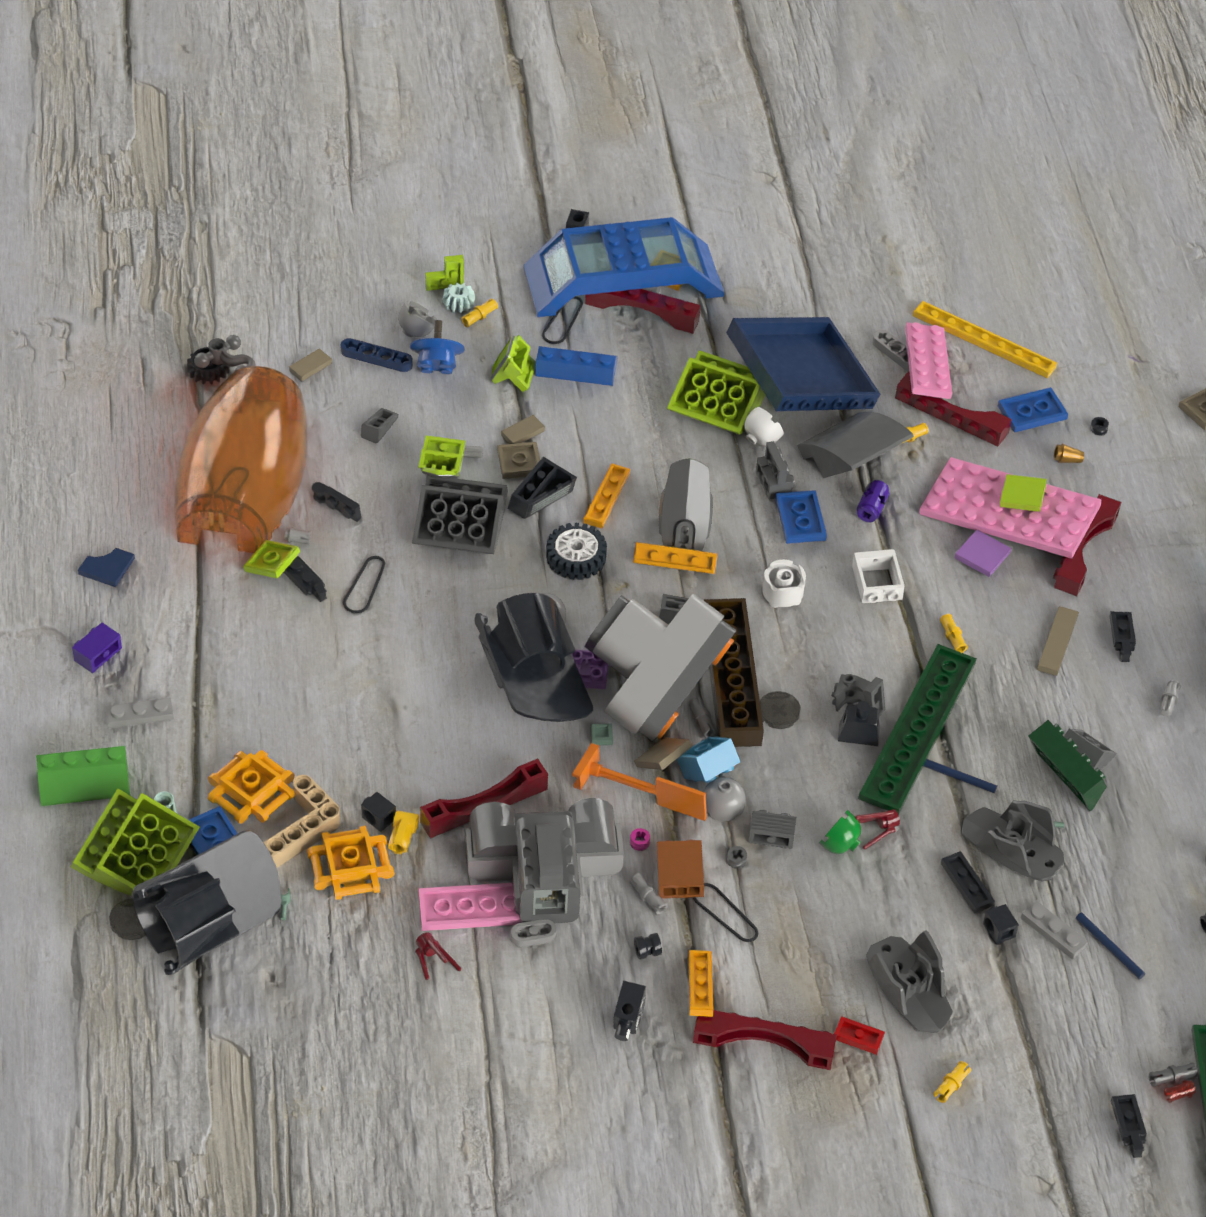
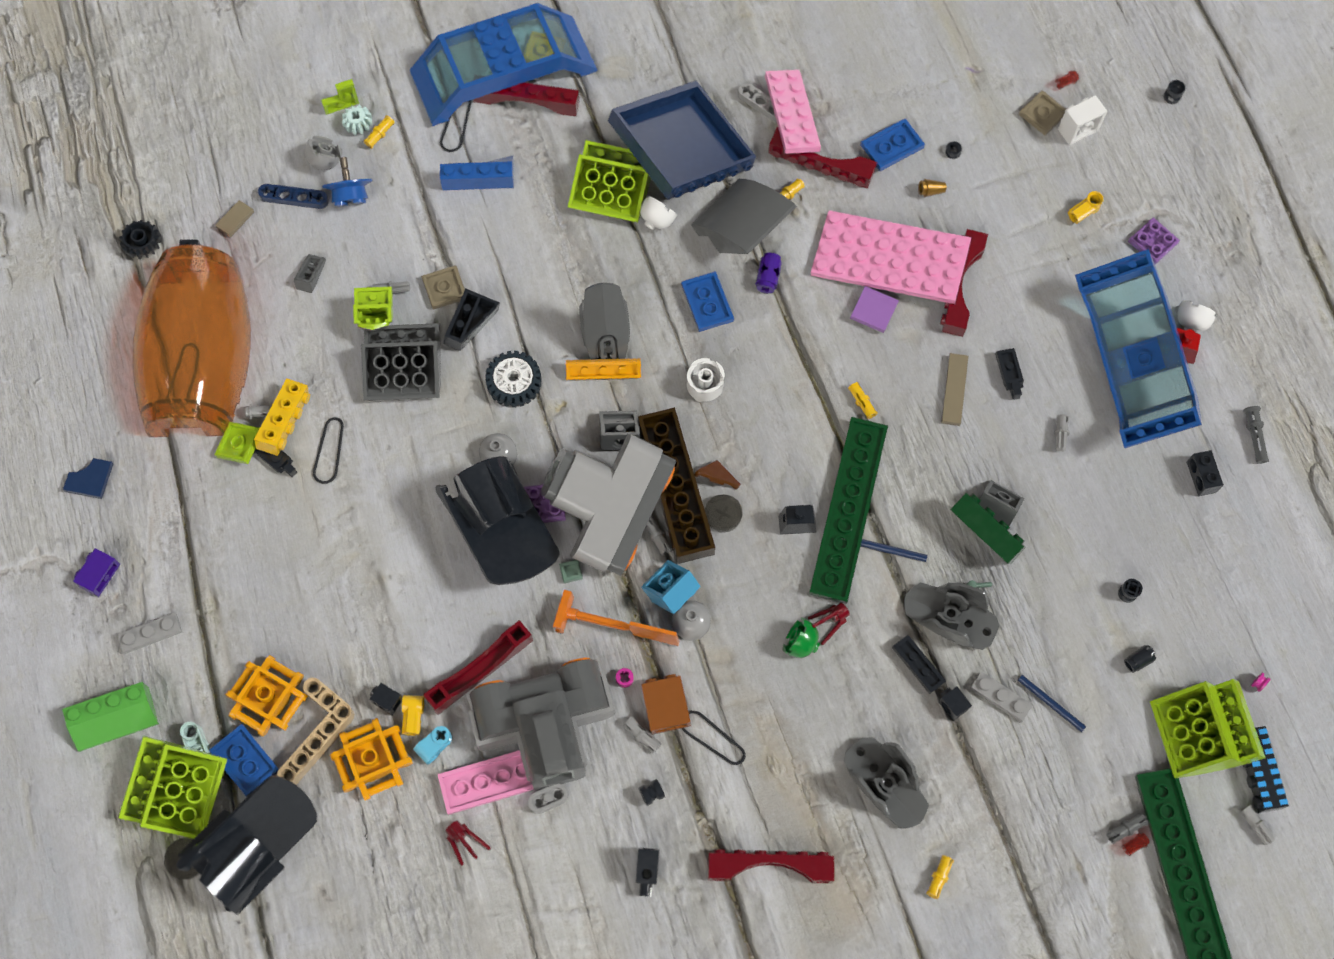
camera: 10 degrees left, 20 degrees up
(218, 354) = (156, 215): dark grey piece -> none
(286, 899) = (319, 813): sand green hand -> none
(323, 541) = (282, 417): none -> yellow brick
(336, 500) = (284, 367): black hinge -> none
(419, 861) = (431, 746): none -> medium azure piece
(514, 364) = (421, 186): lime piece -> none
(523, 430) = (441, 254): dark tan tile -> none
(577, 219) = (450, 16): black brick -> none
(606, 496) = (529, 311): light orange tile -> none
(663, 753) = (630, 586): dark tan tile -> none
(700, 983) = (705, 825): light orange tile -> none
(739, 862) = (710, 673): dark grey bush -> none
(772, 829) = (739, 644): dark grey brick -> none
(774, 472) = (675, 252): dark grey brick -> none
(780, 672) = (718, 474): none -> reddish brown tile
(856, 689) = (802, 486): dark grey tile -> none
(859, 1035) = (851, 846): red plate -> none
(884, 560) = (781, 337): white window -> none
(985, 339) = (837, 74): yellow tile -> none
(1023, 492) = (901, 243): lime tile -> none
(1130, 1123) = (1098, 886): black hinge -> none

